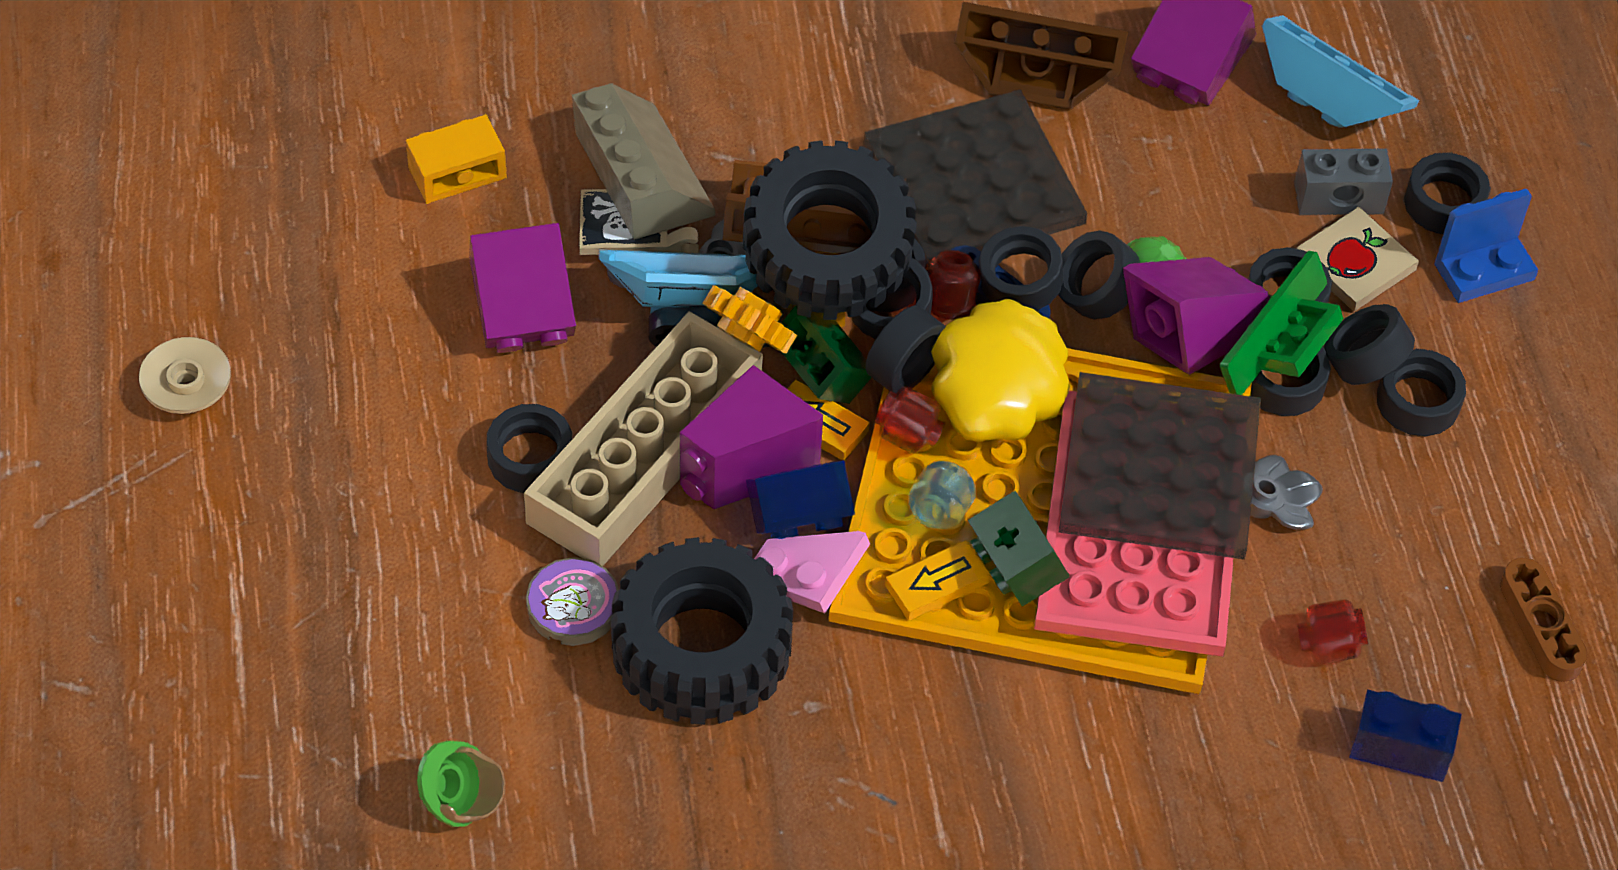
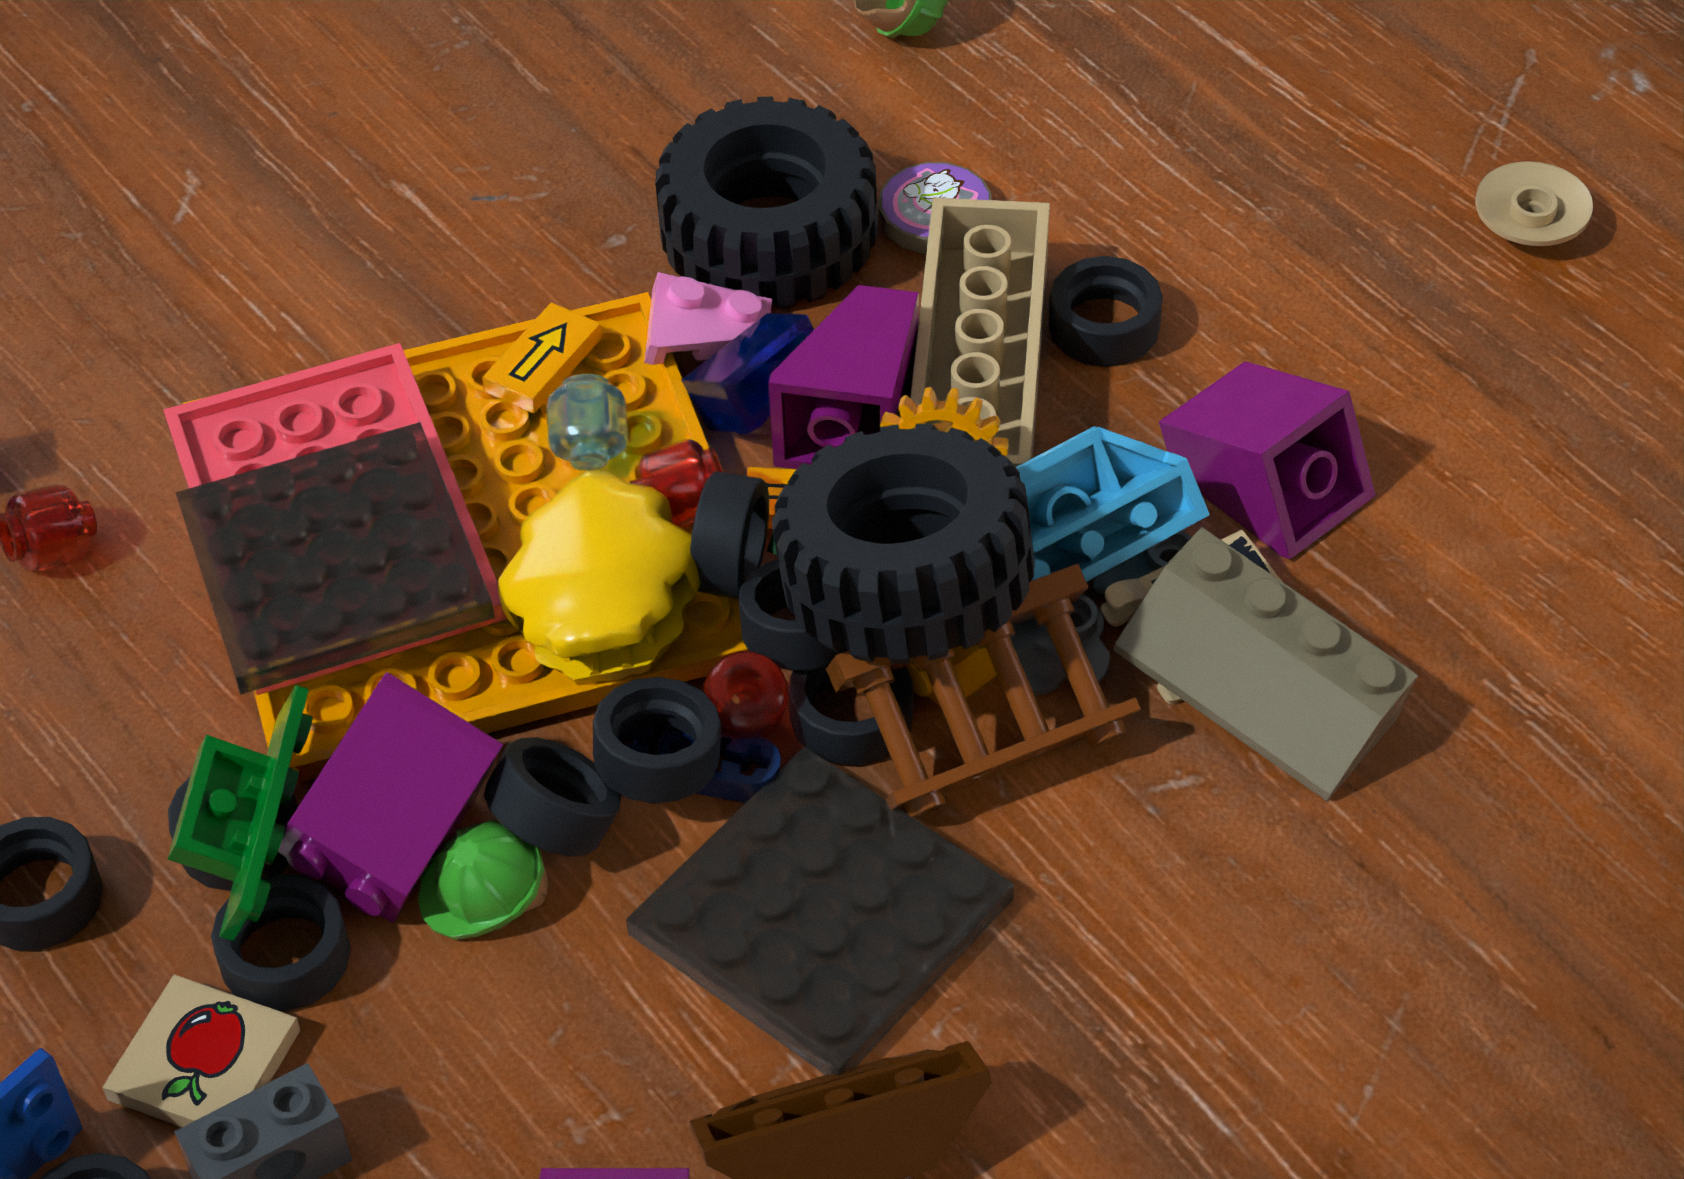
camera: 155 degrees right, 5 degrees down
(456, 158) = (1497, 573): light orange brick -> none
(1018, 549) = (455, 382): dark green brick -> none
(1283, 493) = (176, 678): flat silver plate -> none
(1369, 344) = (93, 907): black tyre -> none

